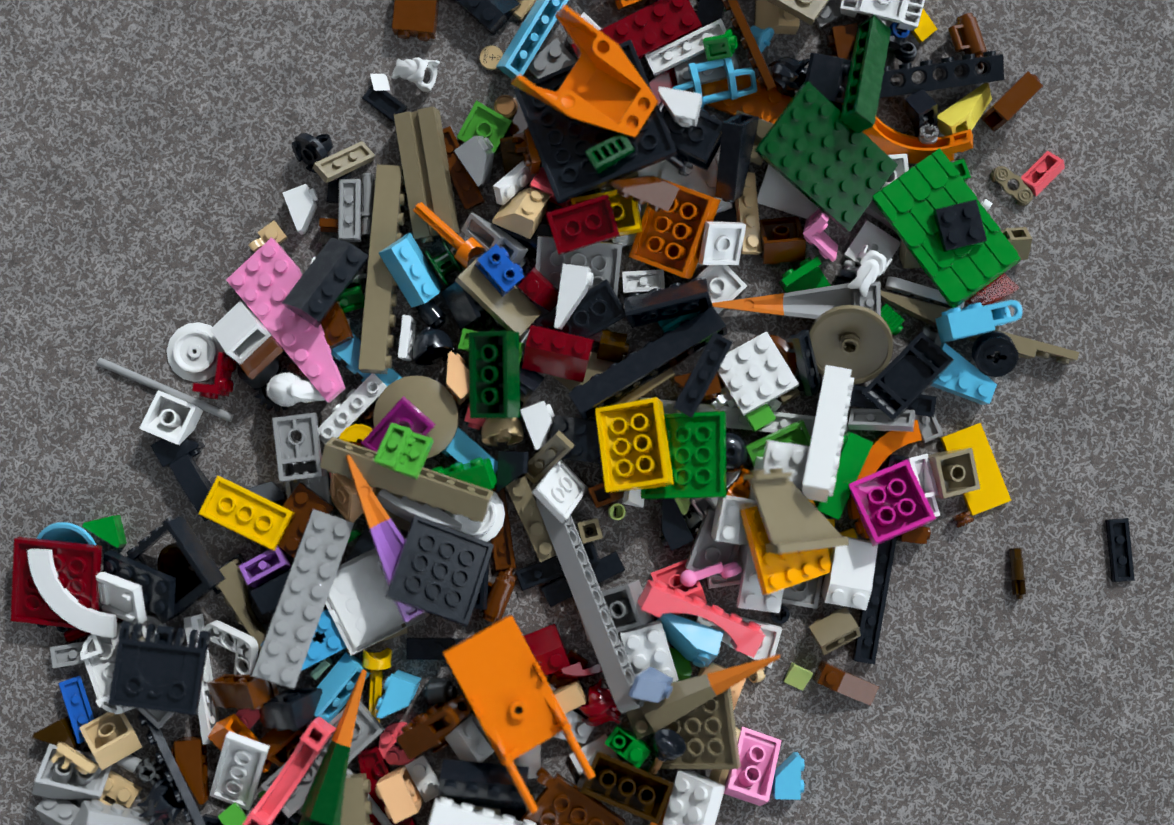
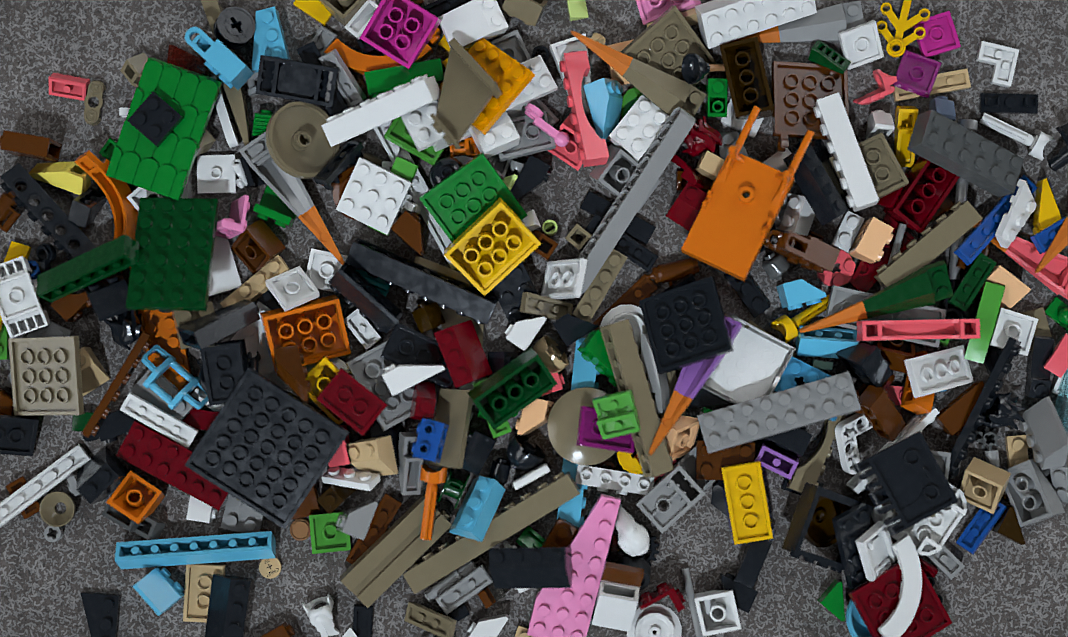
camera: 125 degrees left, 0 degrees up
(71, 755) = (1016, 489): tan plate -> none
(527, 145) = (327, 478): reddish brown plate -> none
(600, 148) = (285, 412): dark green slope -> none
(601, 85) = (237, 462): orange windscreen -> none
(651, 685) = (659, 110): sand blue slope -> none
(681, 105) = (209, 389): white slope -> none
(702, 375) = (403, 232): black plate -> none
(720, 46) = (142, 394): green bracket -> none
(762, 36) = (110, 369): medium azure piece -> none
(872, 265) = (231, 164): white hair -> none
(928, 134) = (99, 188): light grey bush -> none

